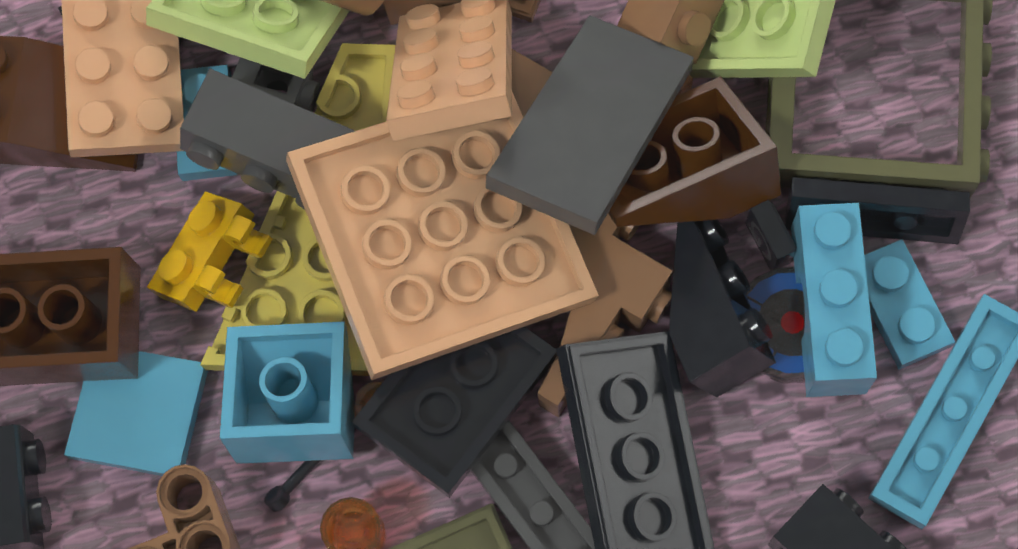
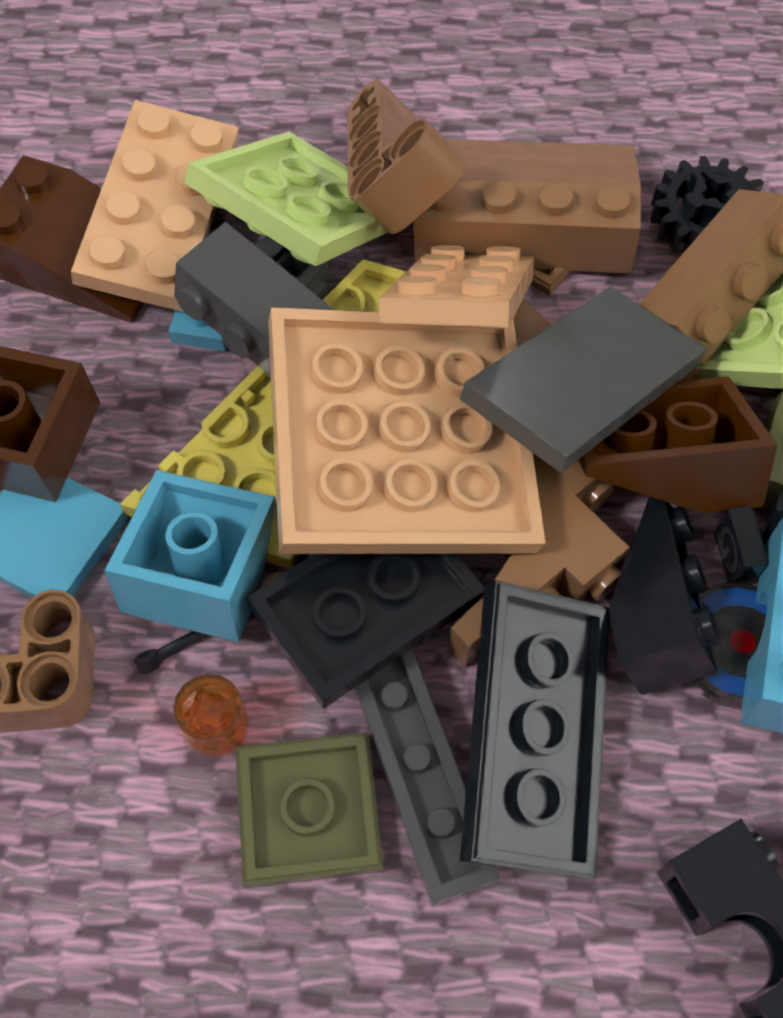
camera: 10 degrees right, 10 degrees down
(201, 250) = (150, 413): yellow plate -> none

